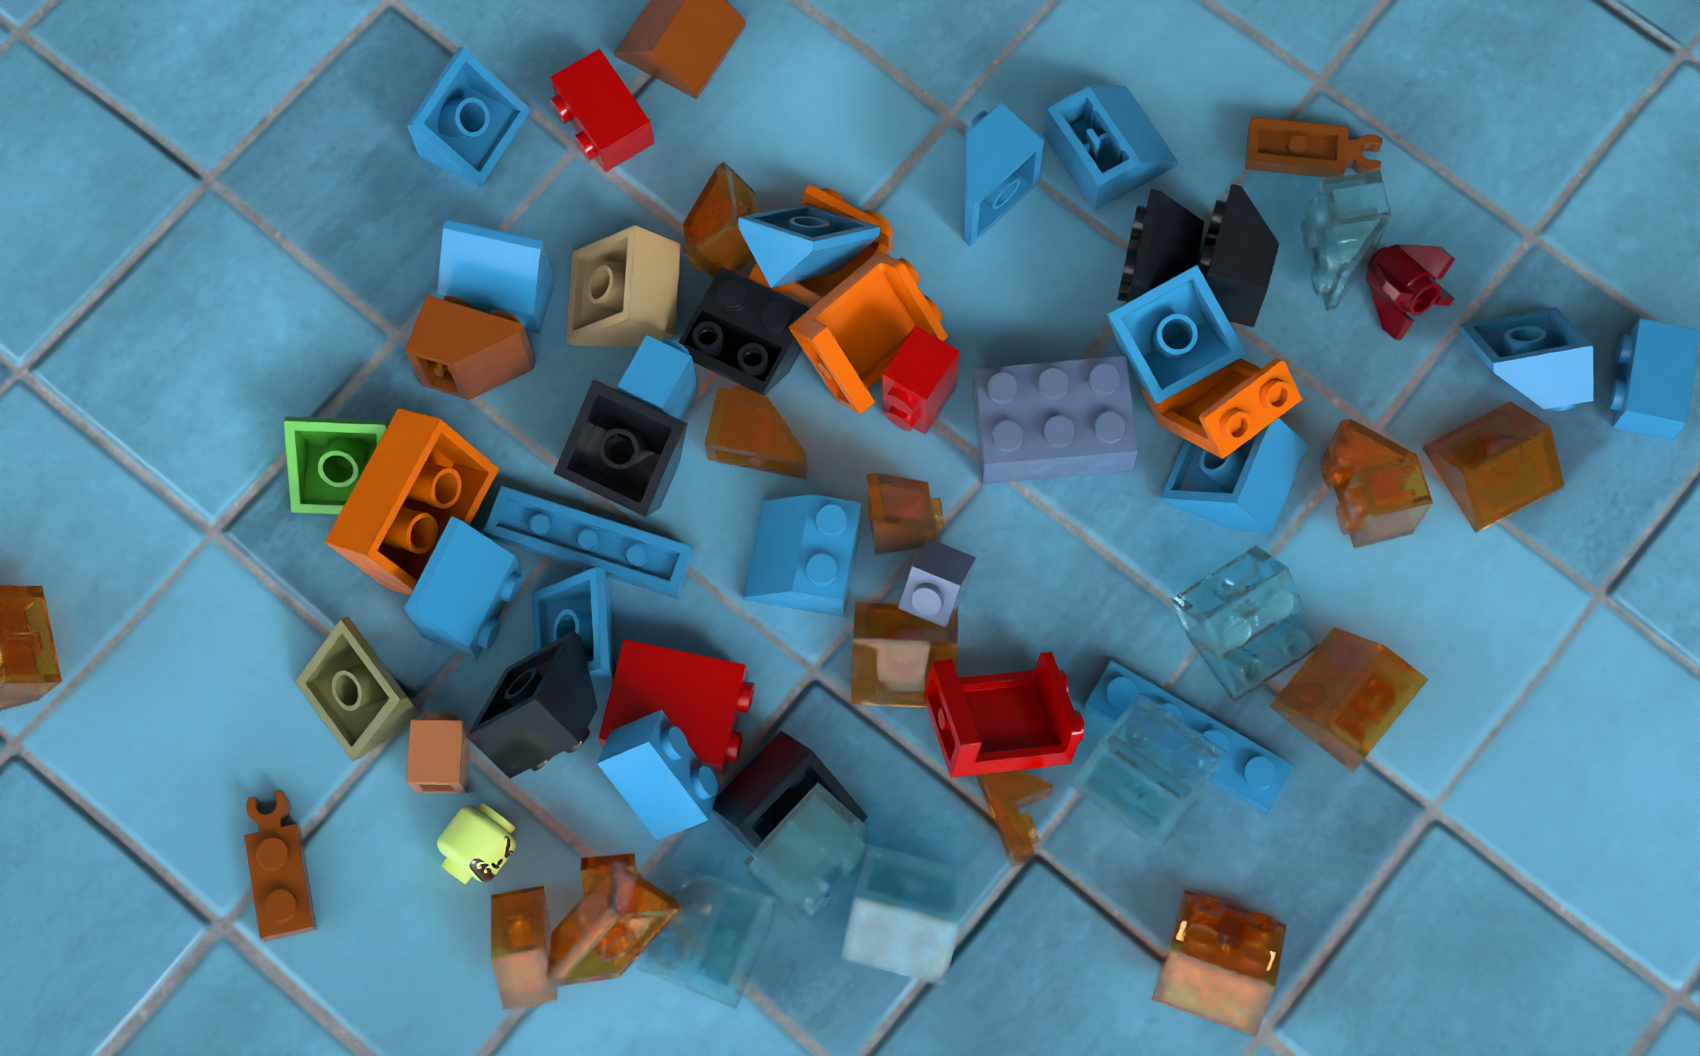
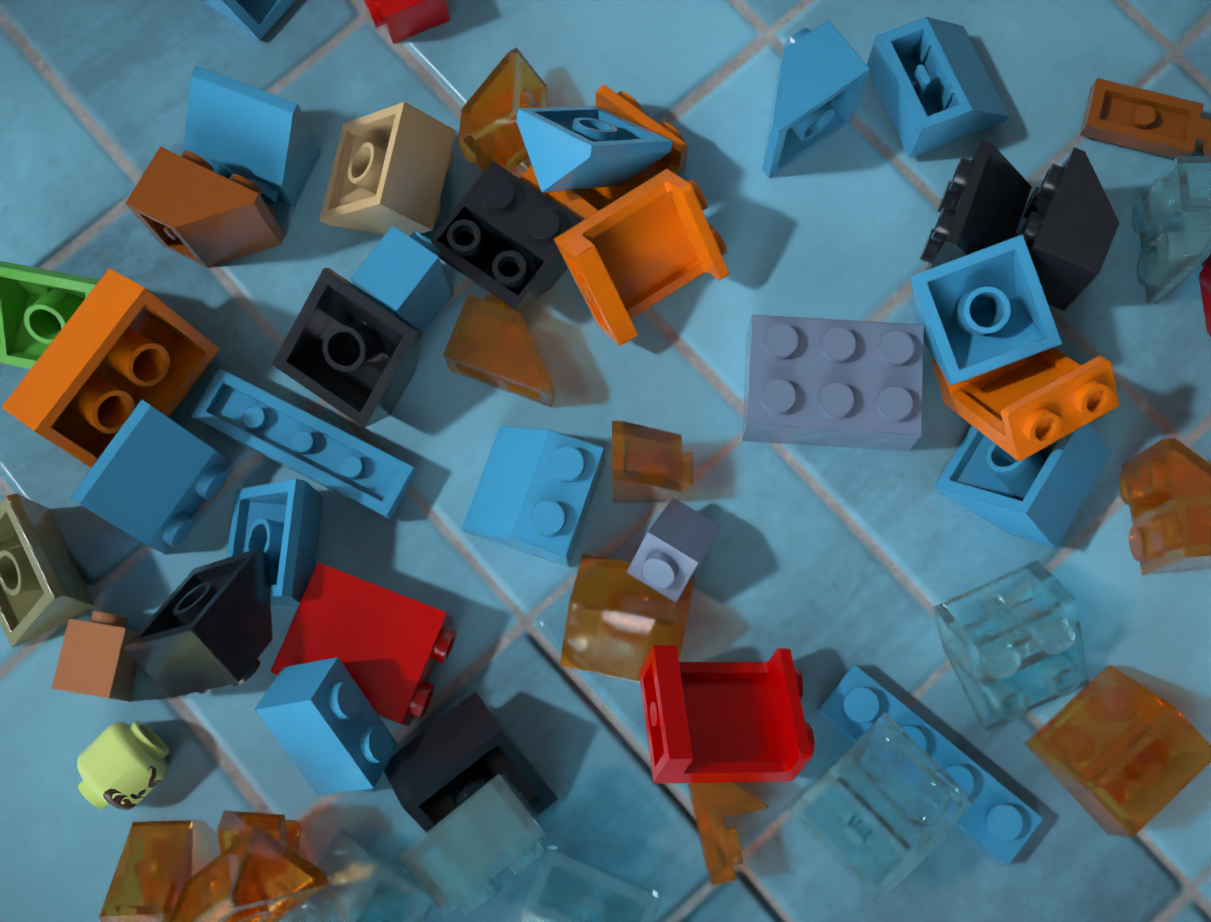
camera: 10 degrees right, 5 degrees up
(919, 381) = (689, 318): red brick -> none

